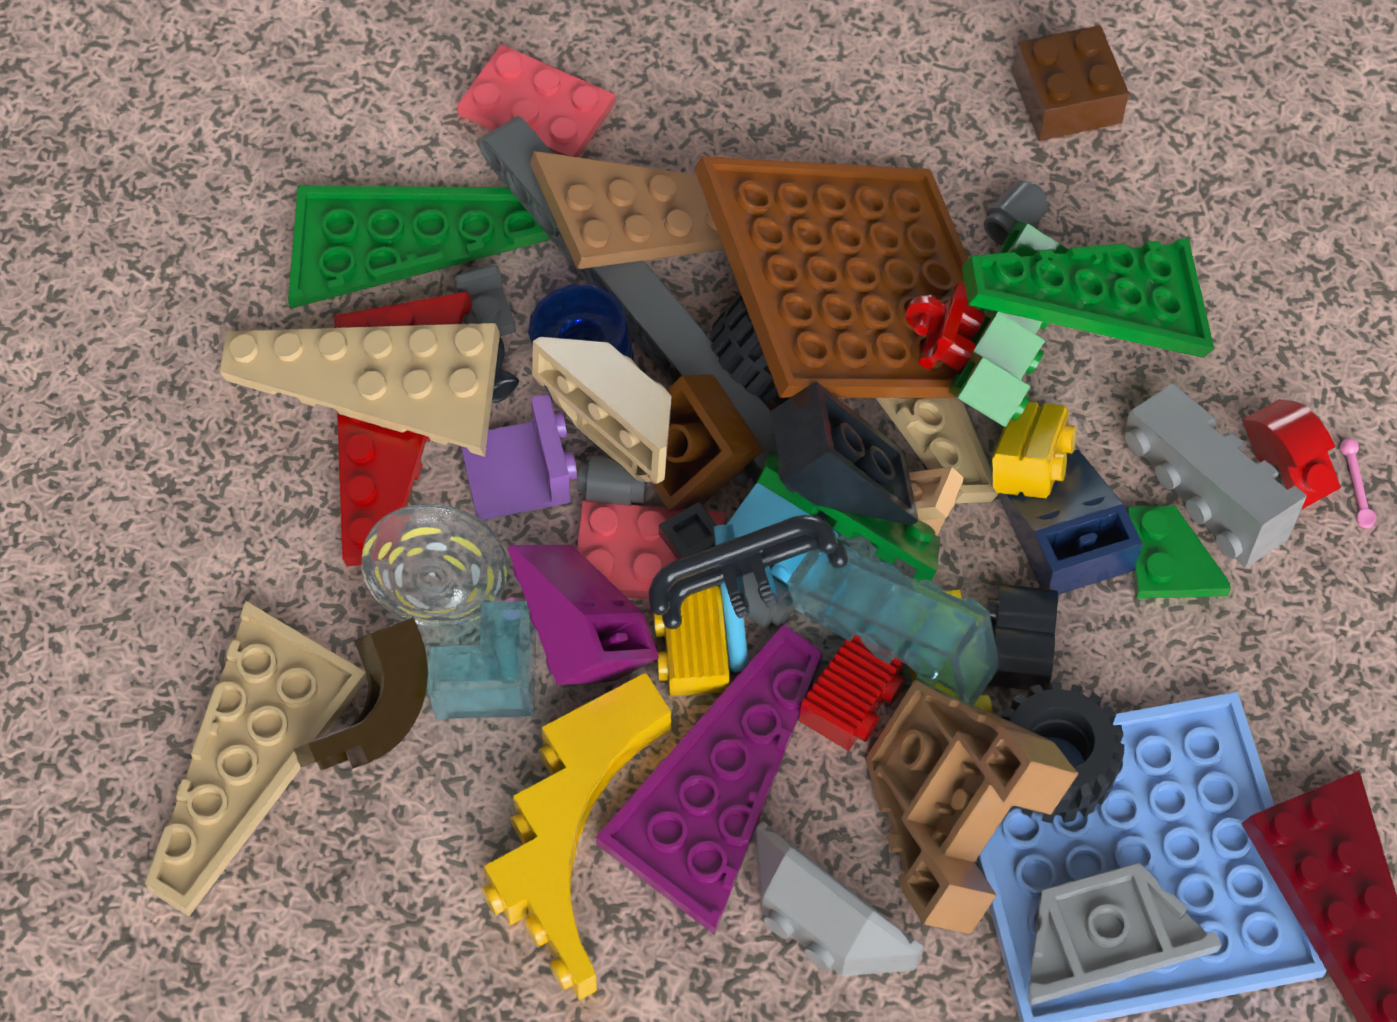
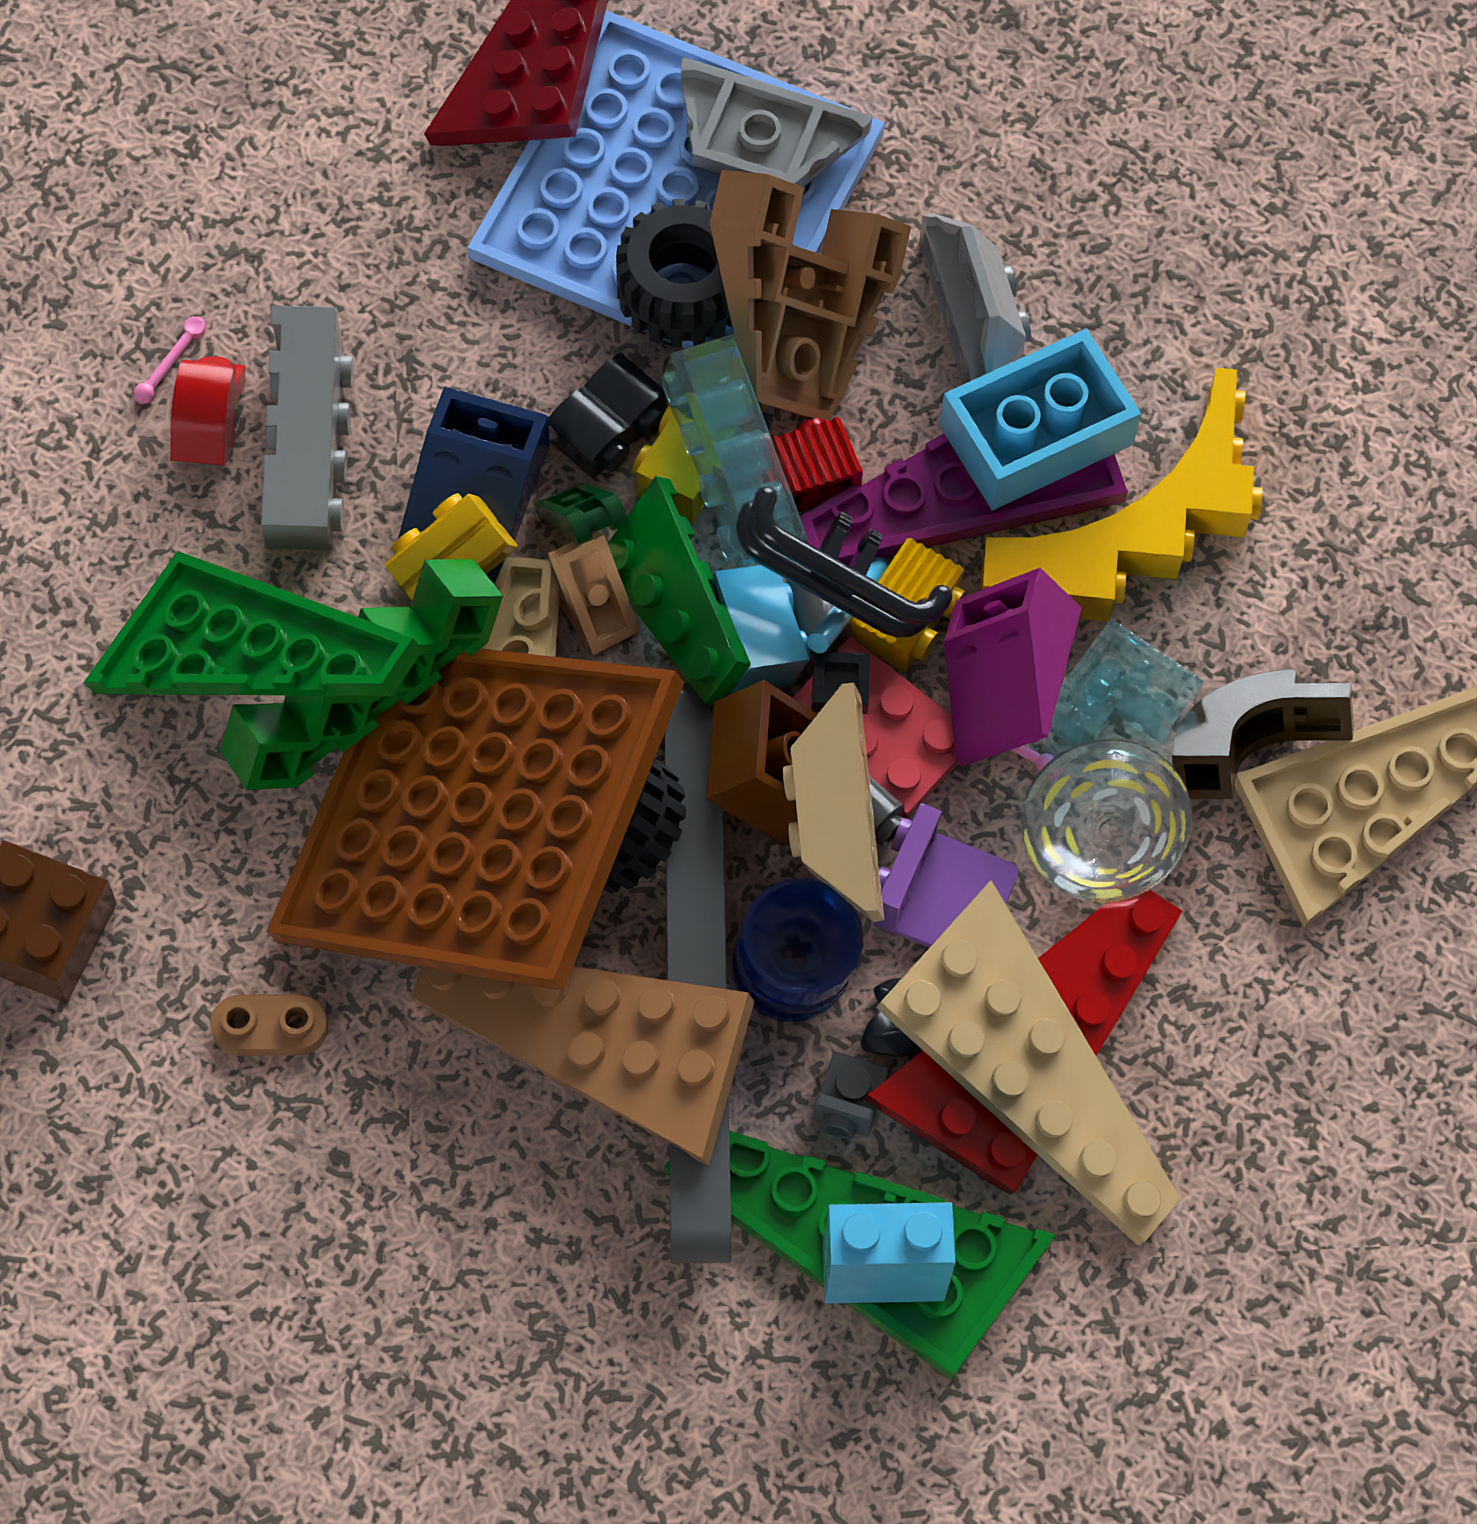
camera: 145 degrees left, 5 degrees up
(378, 179) = (888, 1252): none -> medium azure brick
(552, 102) = (610, 1317): coral plate -> none
(696, 815) = (1039, 419): none -> medium azure brick
(841, 458) = (661, 615): black slope -> none
(883, 127) = (268, 1028): none -> medium nougat plate
(947, 328) = (441, 691): red hips -> none
(970, 524) = (582, 512): none -> dark green plate
(1021, 203) = (227, 820): dark grey brick -> none
(1172, 557) = (399, 407): green wing -> none

